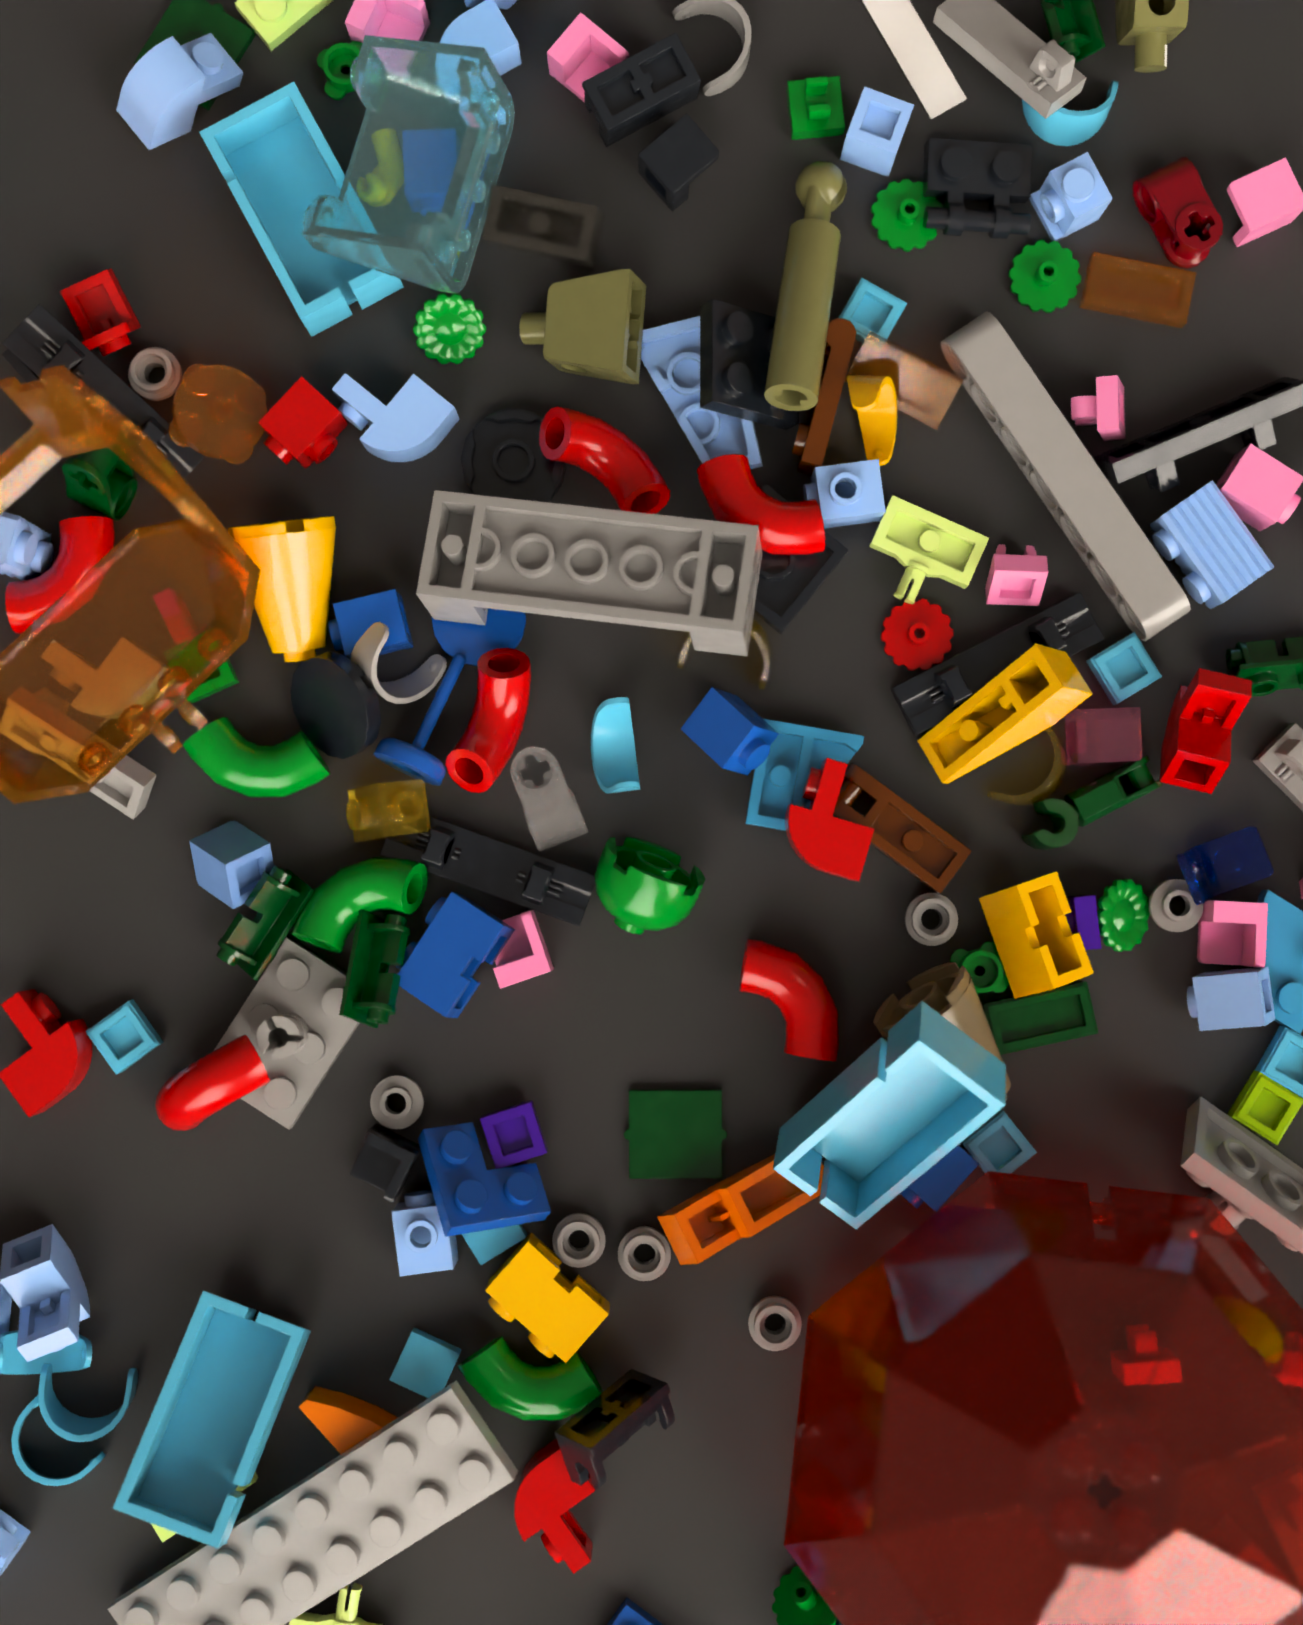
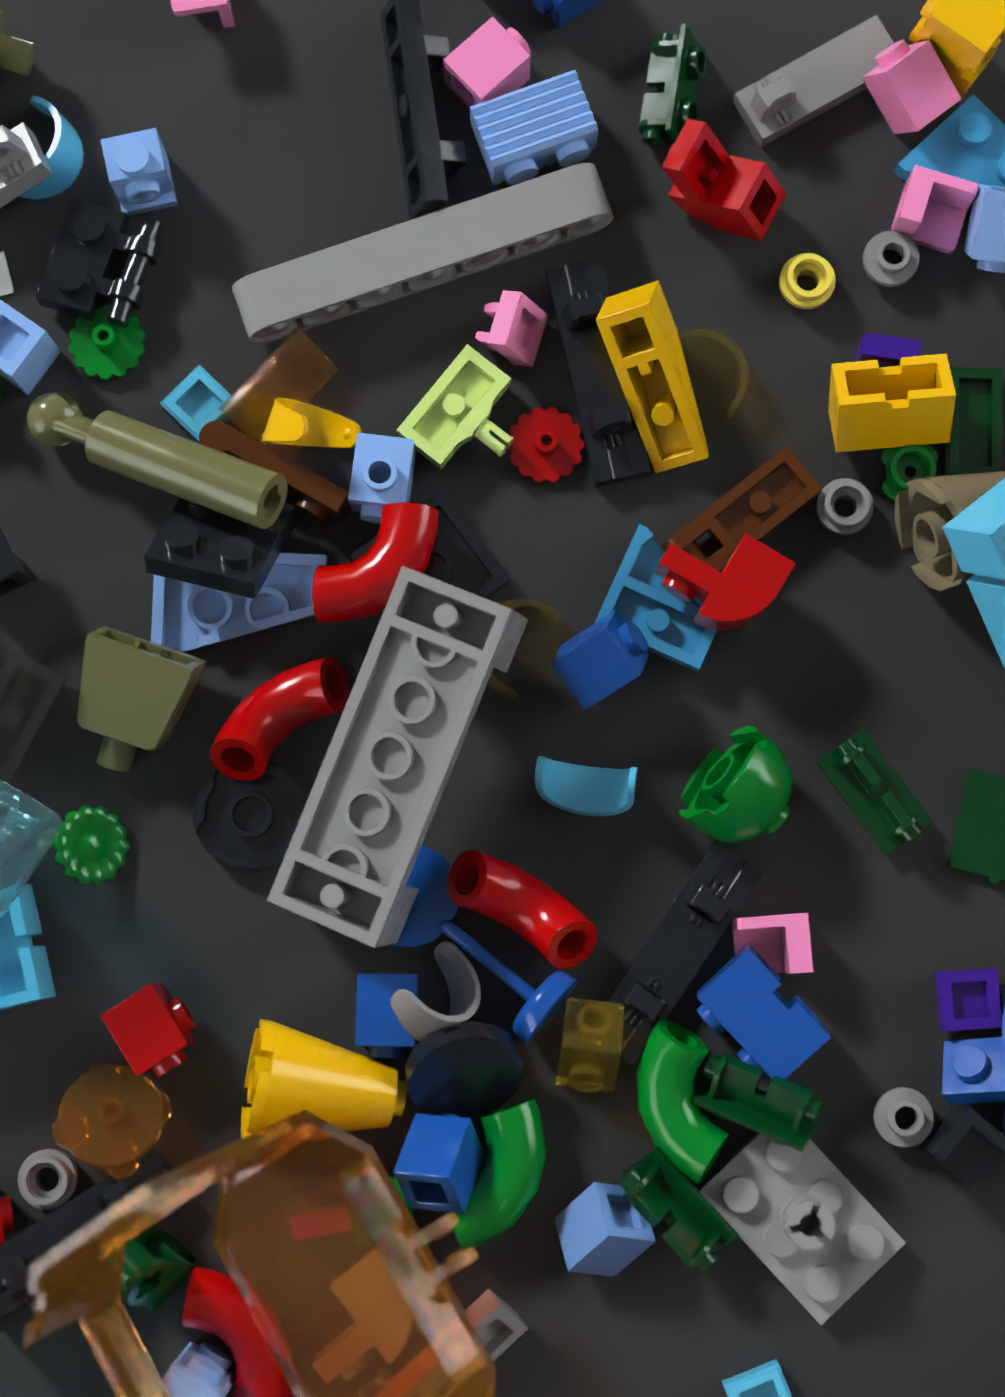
camera: 75 degrees left, 5 degrees down
(210, 1084) = (841, 1314): red cylinder -> none
(251, 704) = (439, 1163): none -> blue brick
(404, 428) = (185, 923): light blue brick -> none
(549, 808) = (628, 871): clear piece -> none
(677, 1008) = (874, 792): none -> dark green hinge
(799, 995) = (892, 661): red cylinder -> none
(1044, 276) = (210, 221): green piece -> none
(1090, 804) = (766, 315): dark green piece -> none
(1103, 736) = (702, 283): clear pink panel -> none
(1104, 409) = (364, 196): bright pink tile -> none
(1123, 668) = (635, 247): medium azure tile -> none
(1123, 915) = (888, 312): green piece -> none
(1137, 290) = (251, 133): clear orange tile -> none
(1149, 828) = (809, 265): none -> light yellow plate
(1179, 212) = (179, 70): dark red piece -> none
(1225, 864) = (861, 197): clear blue bracket -> none

